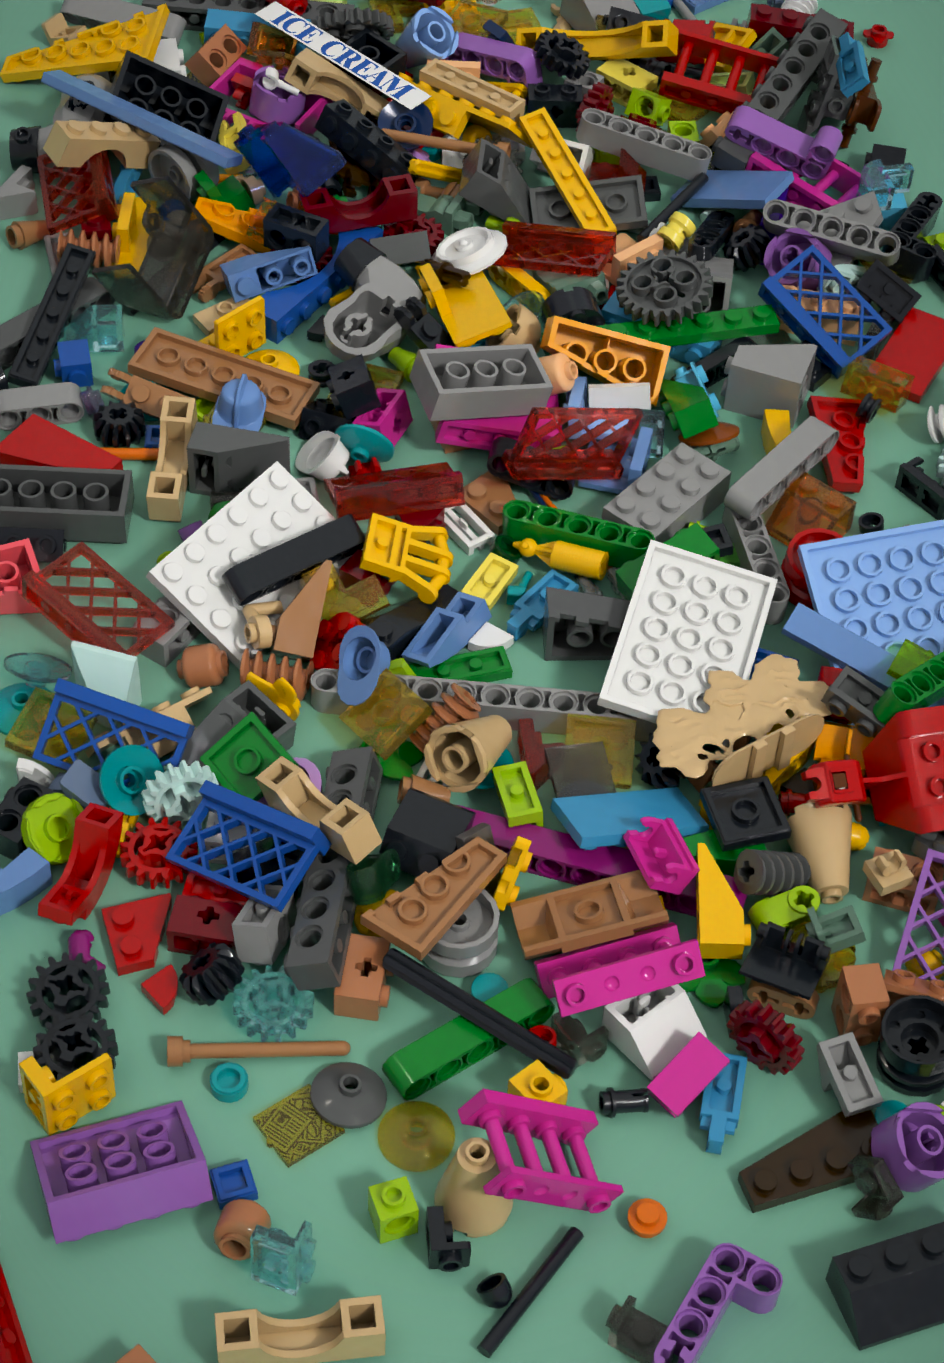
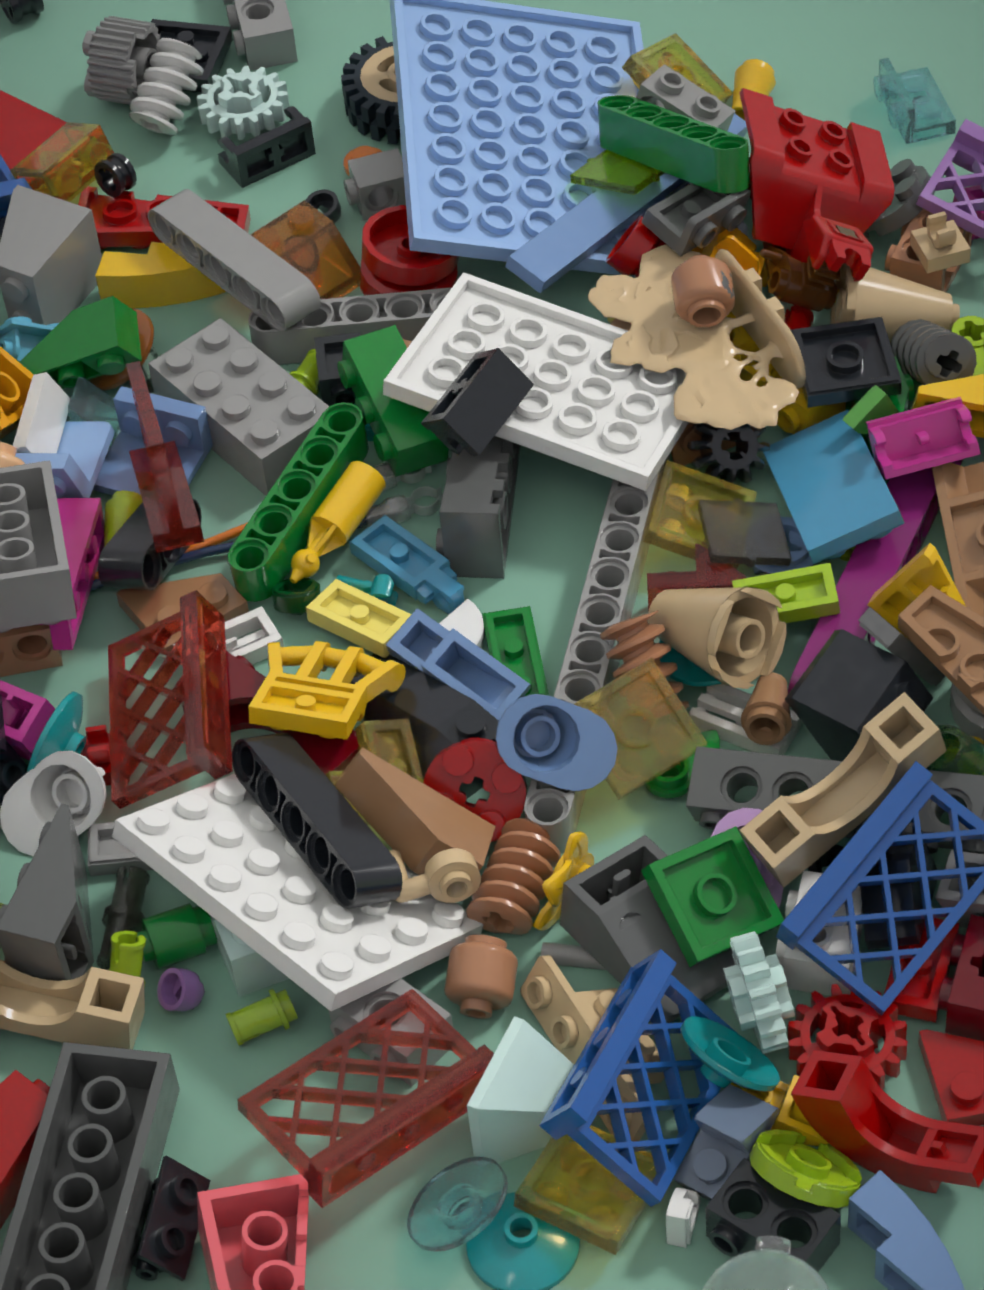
camera: 75 degrees left, 0 degrees up
(198, 505) = (127, 953): none -> lime pin
(635, 589) = (478, 402): none -> black hinge
(692, 828) = (870, 407): none -> bright green tile
(770, 704) = (703, 290): none -> nougat head

